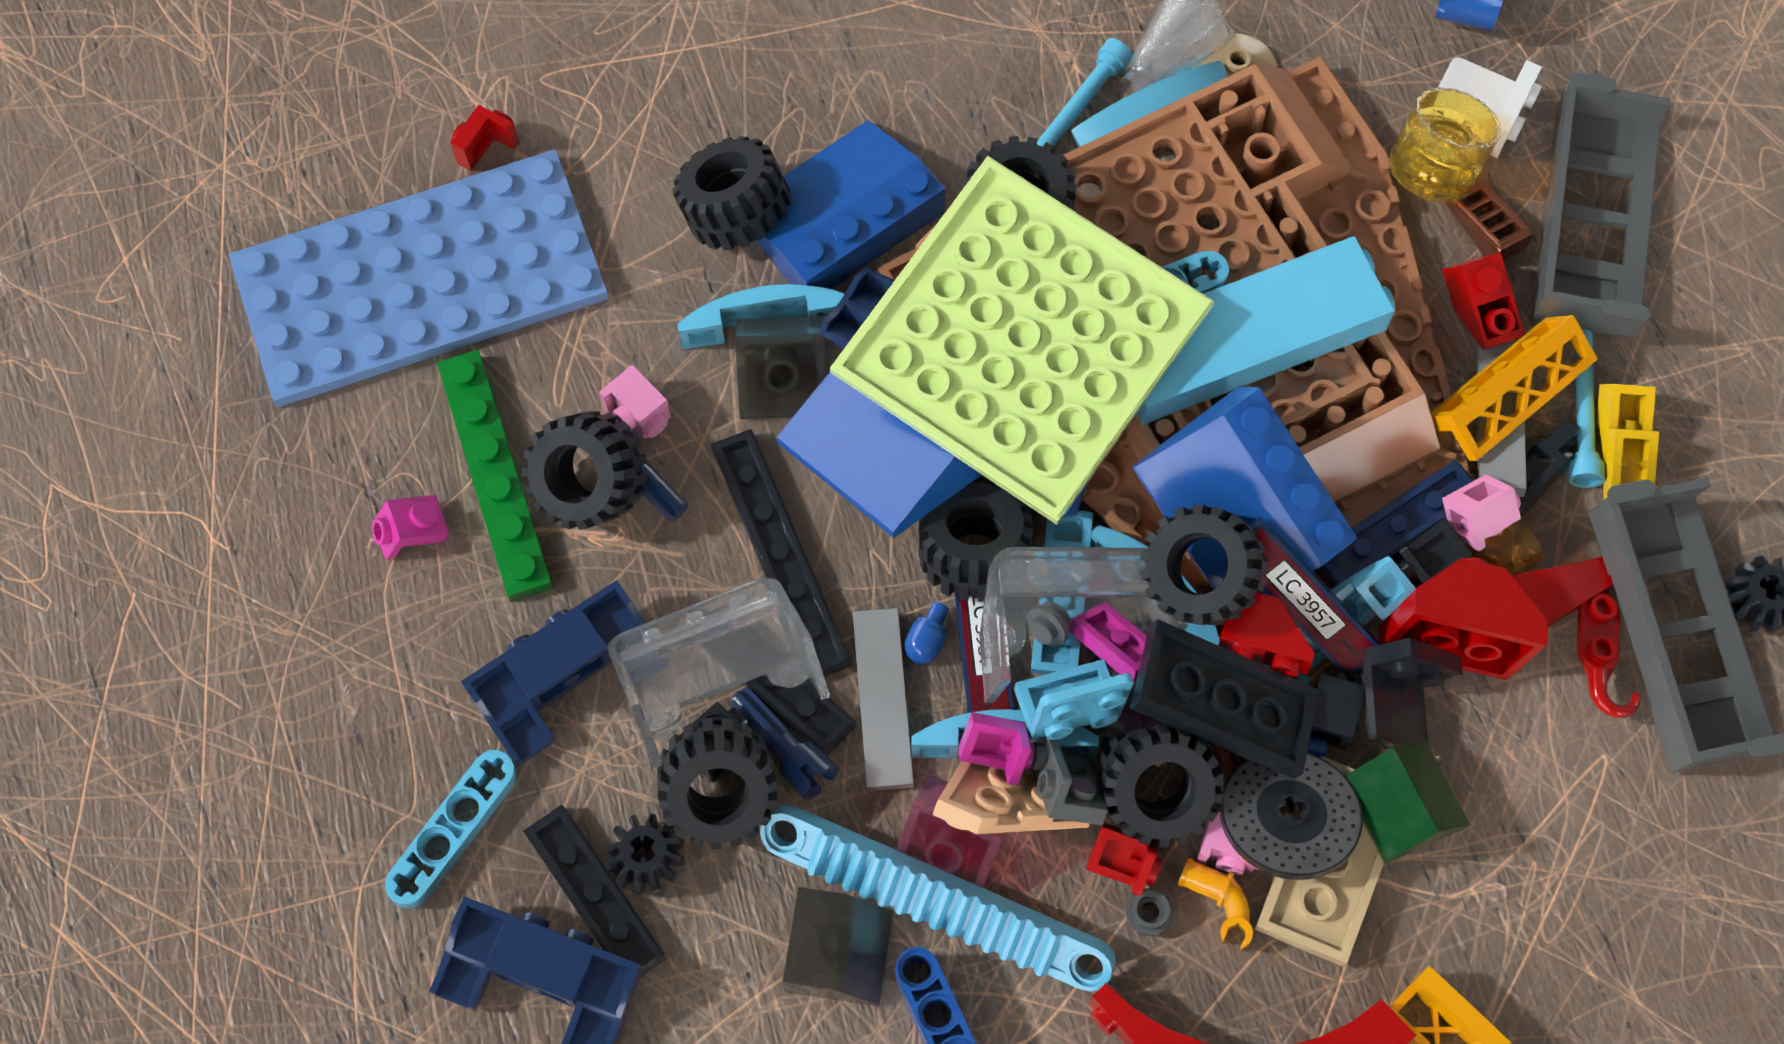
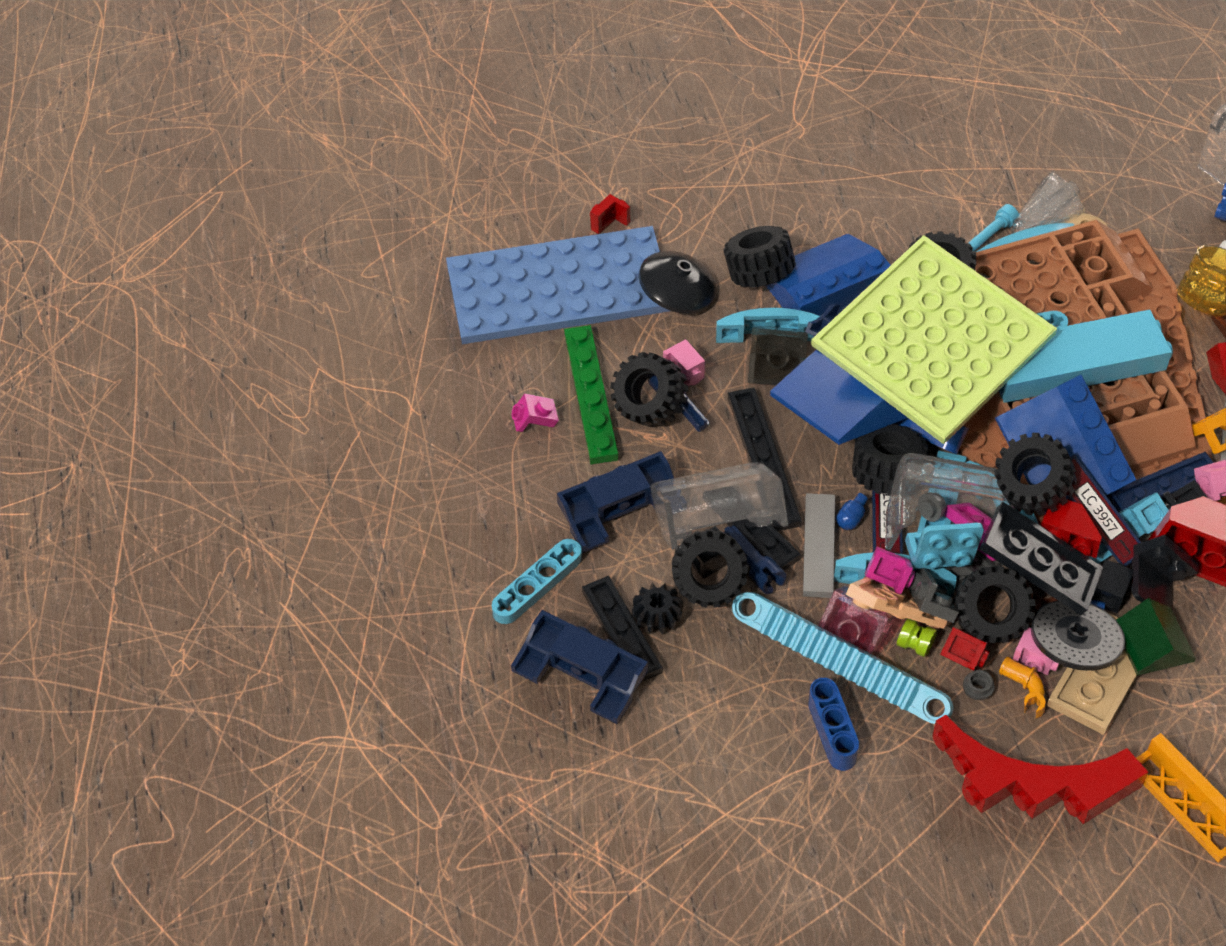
camera: 10 degrees right, 15 degrees down
(601, 268) = (677, 282): none -> black dish
(837, 947) = (772, 676): clear smoke slope -> none
(1037, 844) = (916, 637): none -> lime wheel

